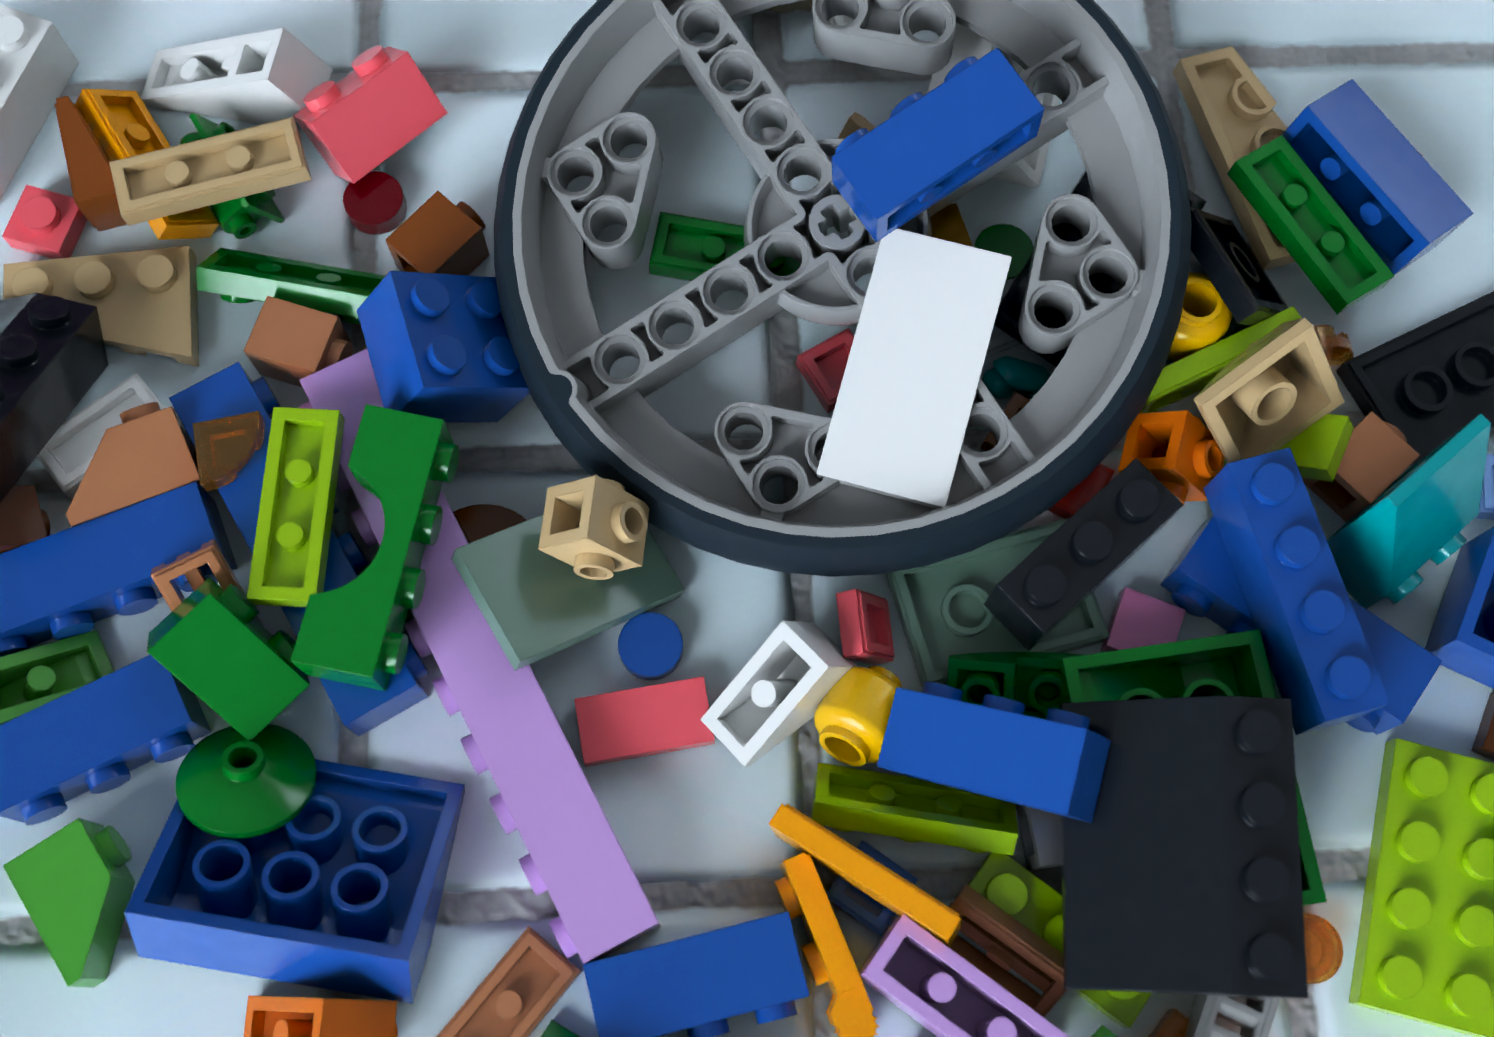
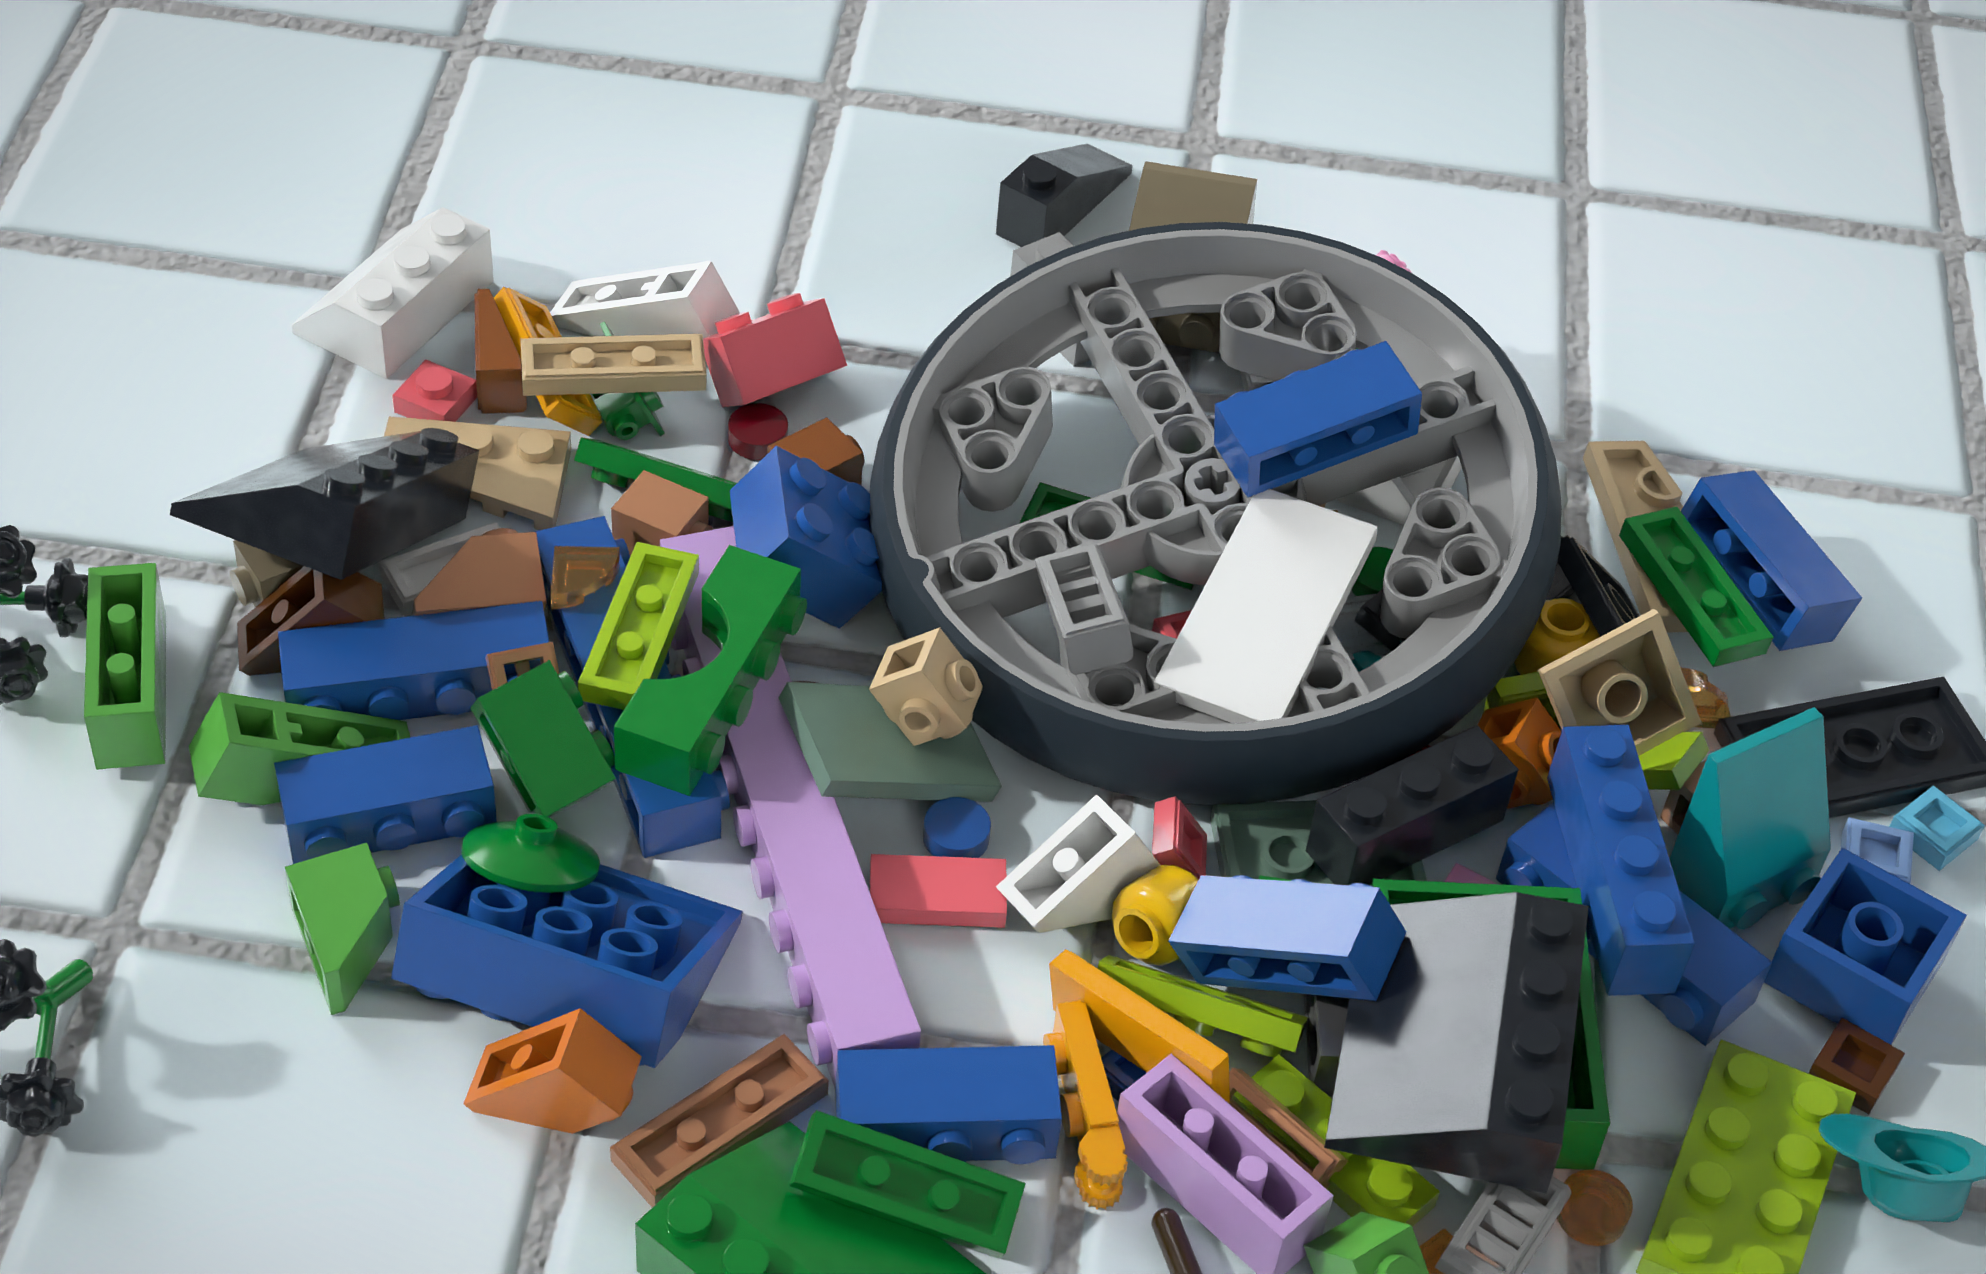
camera: 10 degrees right, 25 degrees down
(753, 443) = (1086, 610): none -> light grey slope

